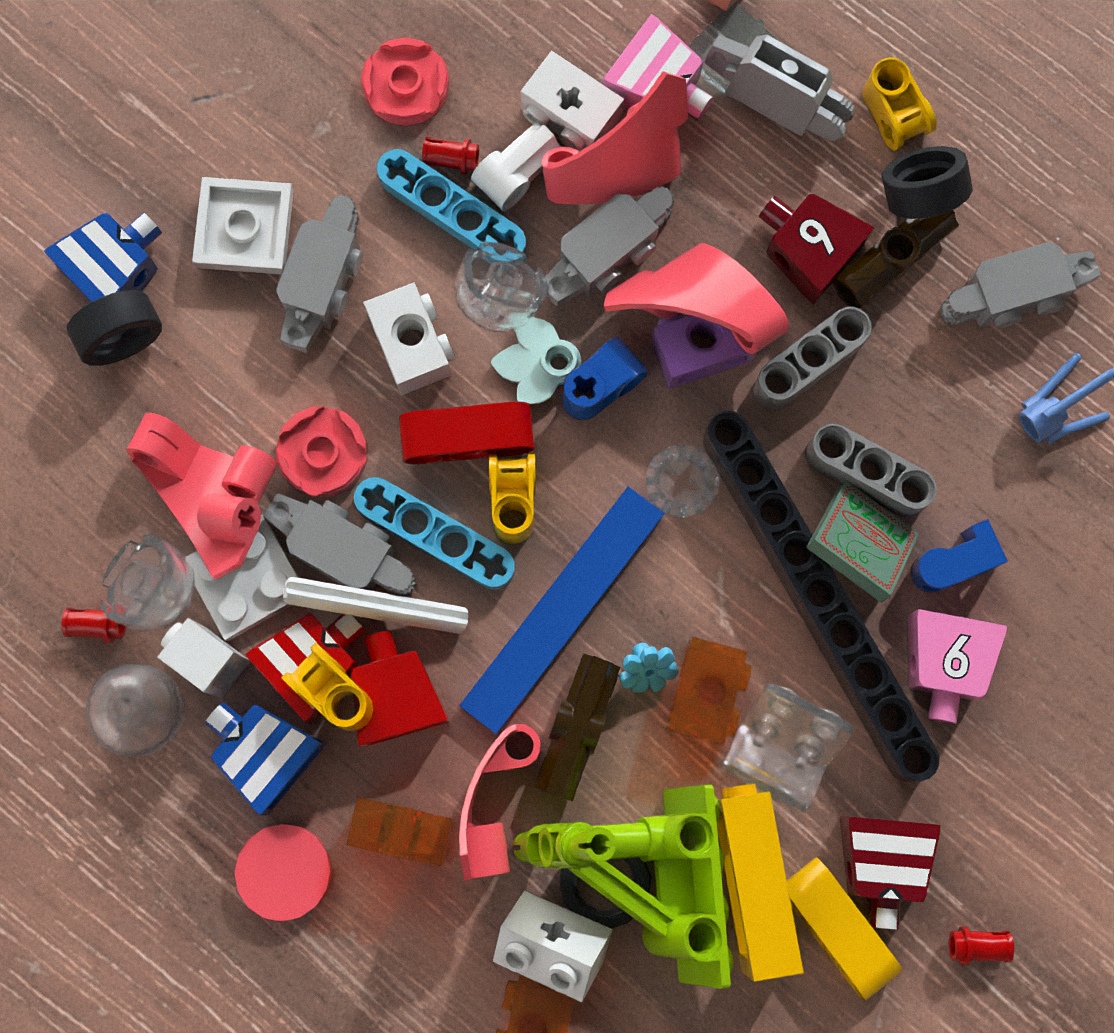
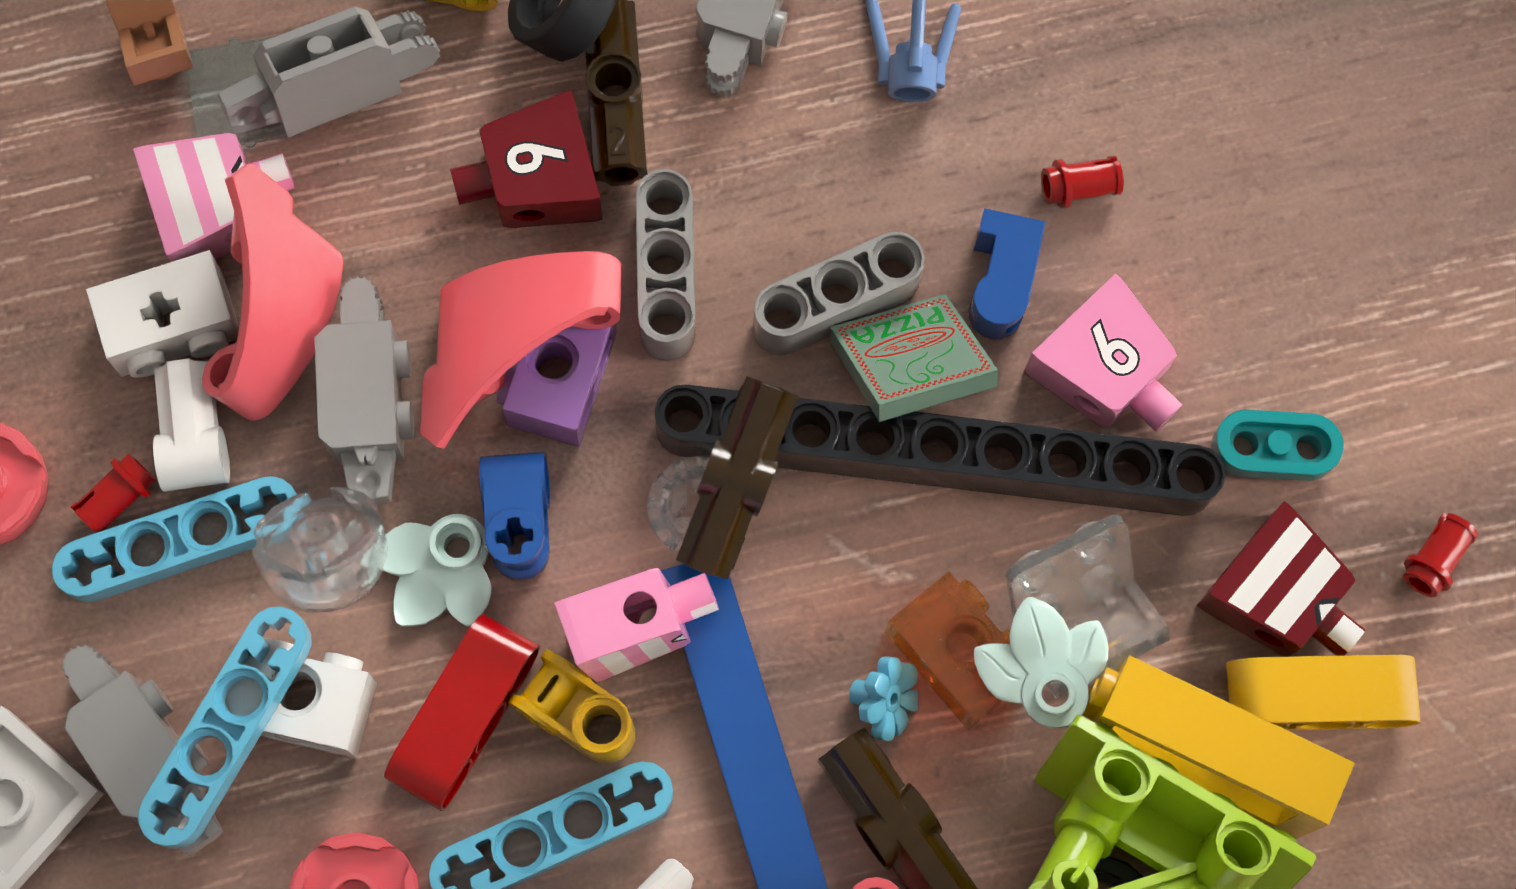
camera: 55 degrees left, 5 degrees down
(361, 301) = (217, 722): none -> medium azure beam
(567, 479) = (606, 627): none -> bright pink torso
(711, 488) = (737, 477): none -> dark brown piece
(736, 739) = (1043, 653): none -> light aqua plate
(974, 797) = (1274, 444): none -> teal plate
(1053, 566) = (1081, 180): none -> red pin

